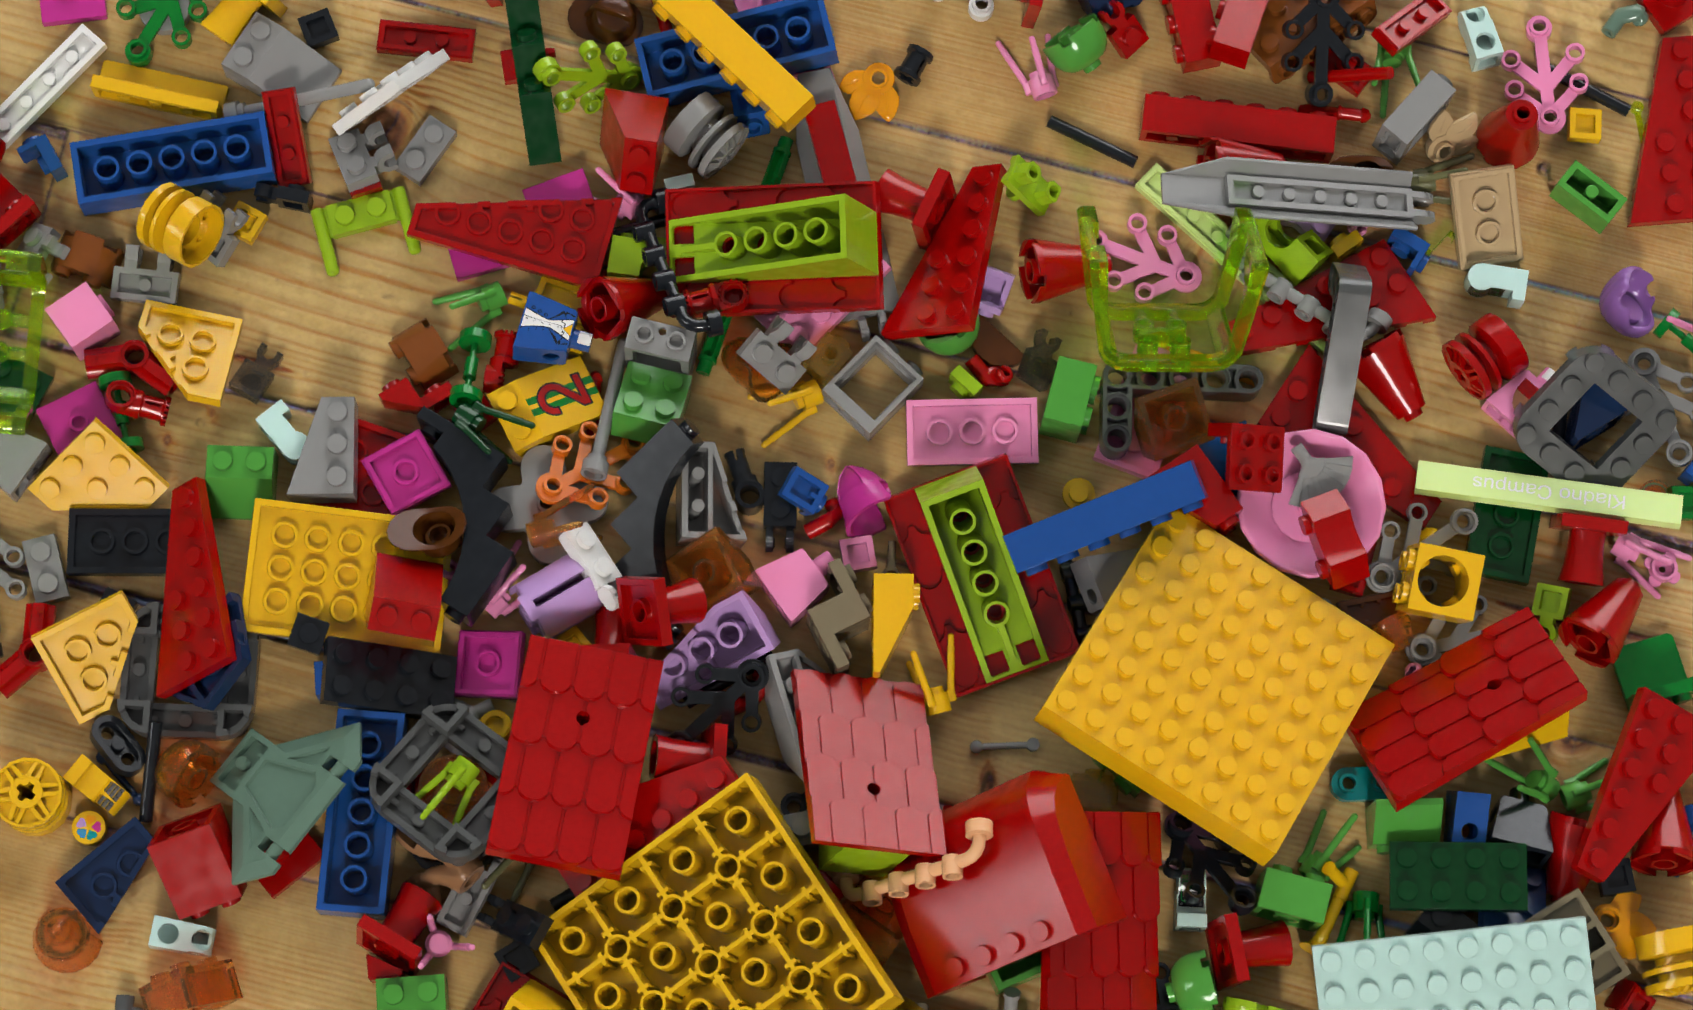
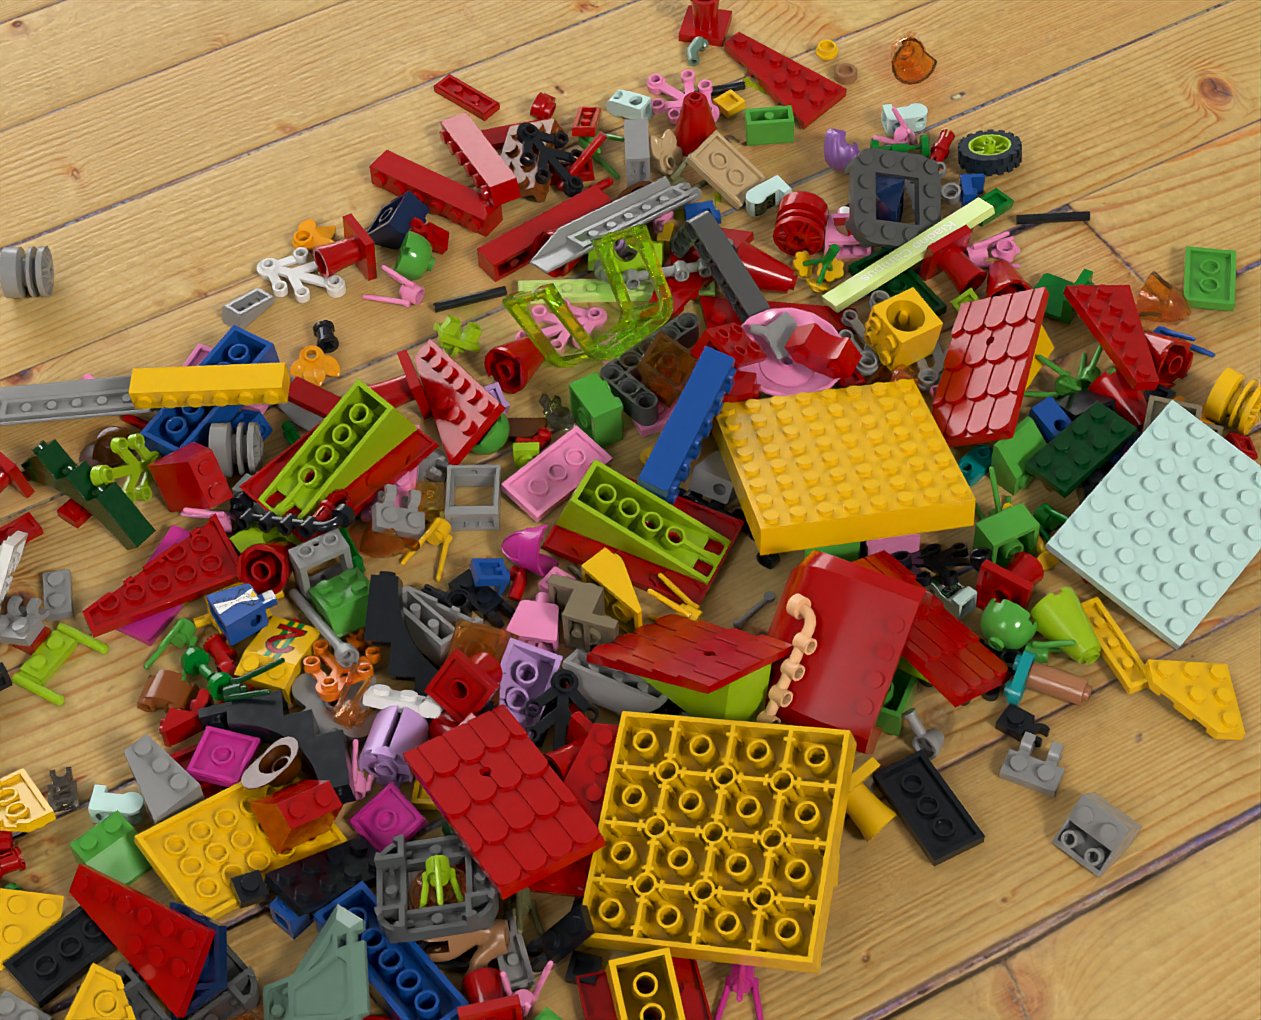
camera: 35 degrees left, 25 degrees down
(1466, 429) = (828, 268): none -> yellow plant

